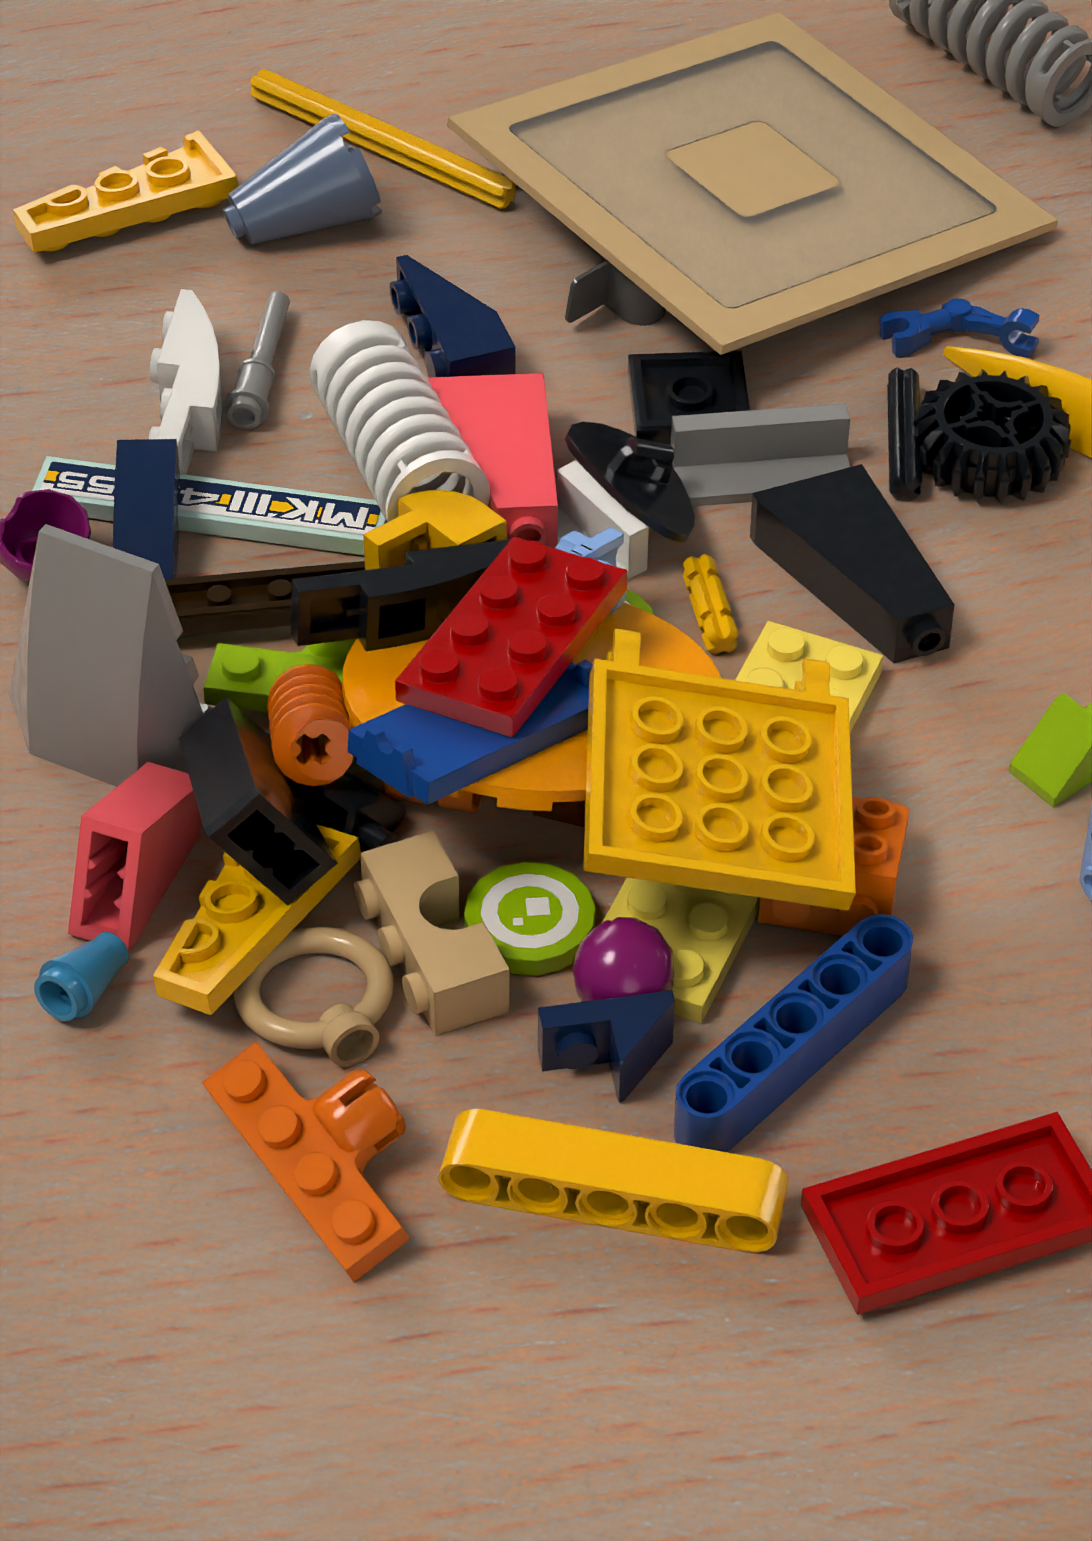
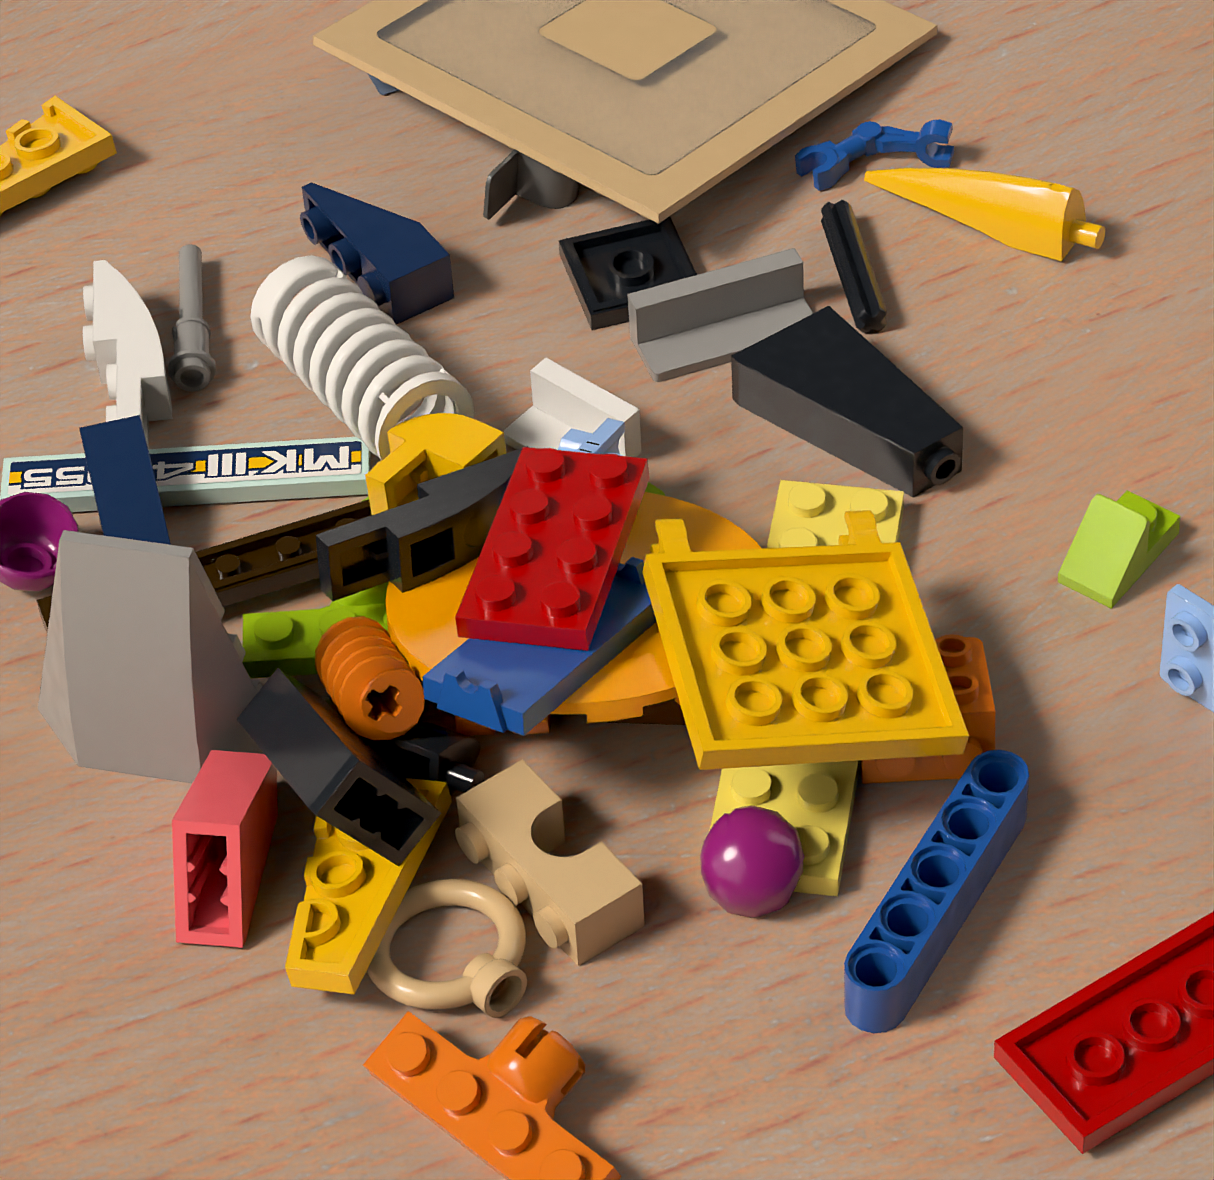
camera: 10 degrees left, 0 degrees up
(78, 978) = (205, 985): dark azure cone -> none
(305, 188) = (186, 133): sand blue cone -> none
(386, 139) = (244, 68): yellow axle -> none
(510, 439) = (474, 344): coral slope -> none
(533, 915) = (644, 820): lime tile -> none
(614, 1180) = (805, 1073): yellow beam -> none
(619, 1031) = (761, 923): dark blue slope -> none
(635, 475) = (608, 359): black shield -> none
(710, 604) = (717, 474): yellow axle -> none
(992, 436) = (942, 252): black gear -> none

